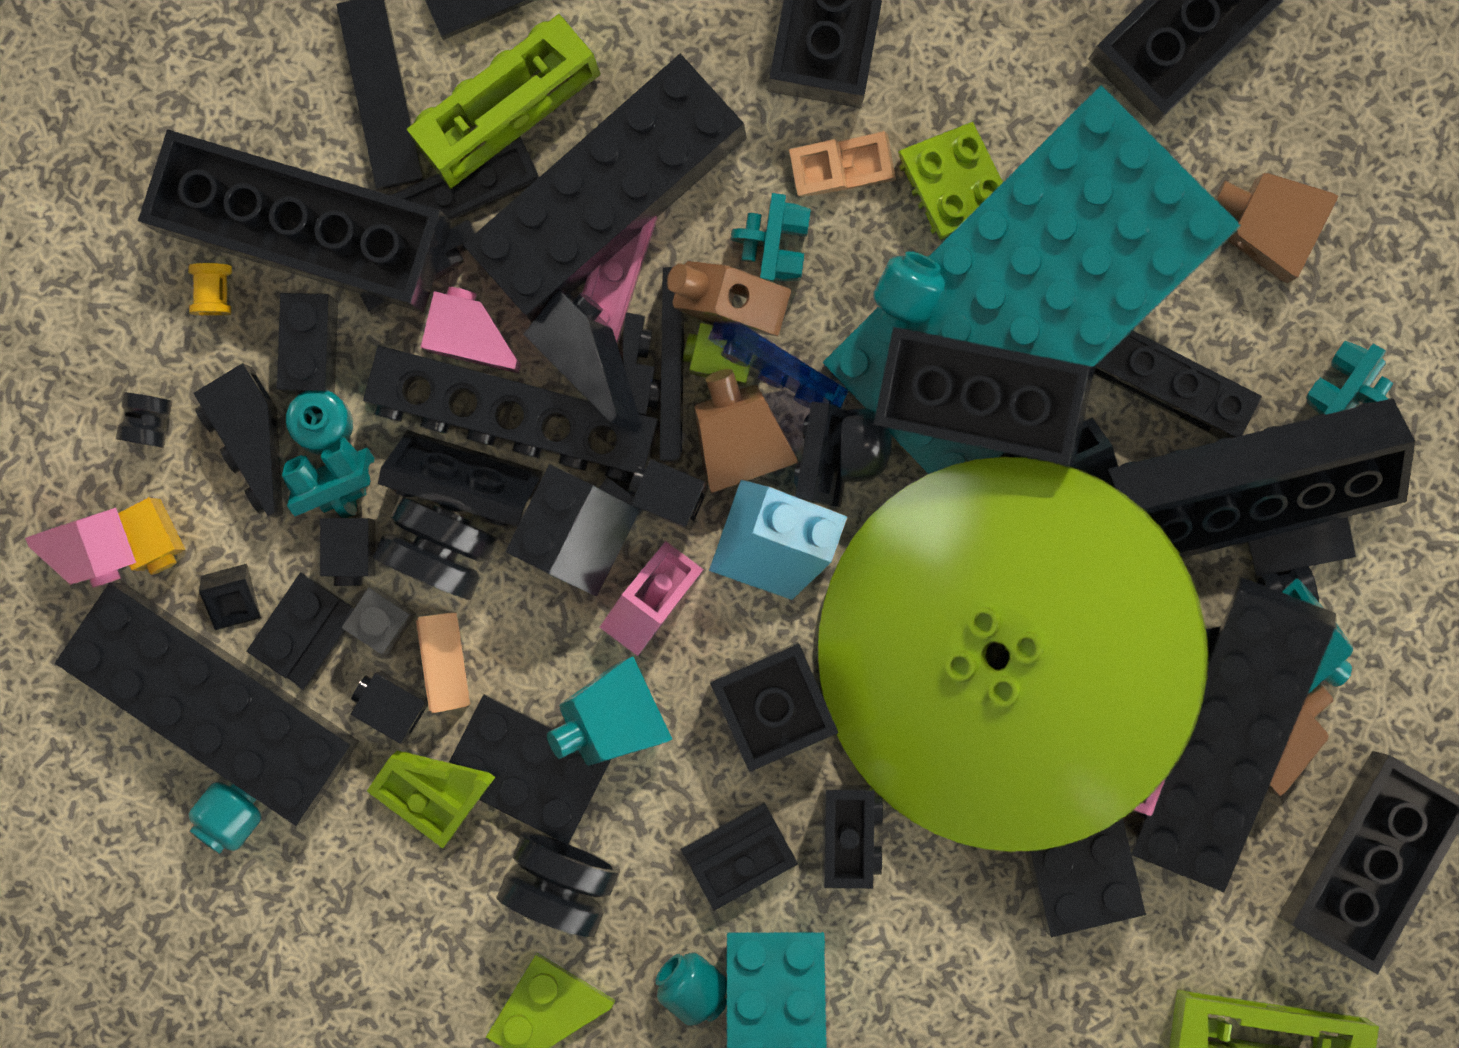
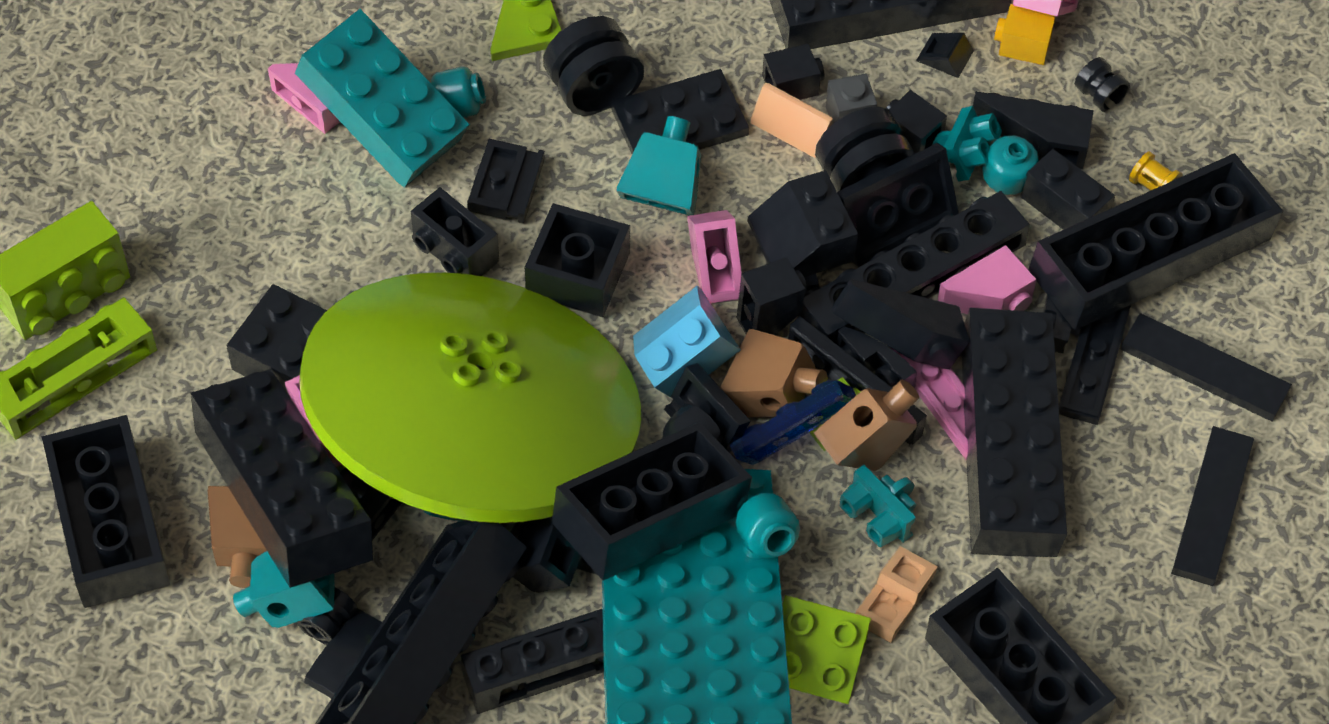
camera: 125 degrees right, 30 degrees down
(301, 631) = (887, 67): black plate -> none
(429, 793) = (718, 54): lime wing -> none
(504, 100) = (1139, 474): lime brick -> none

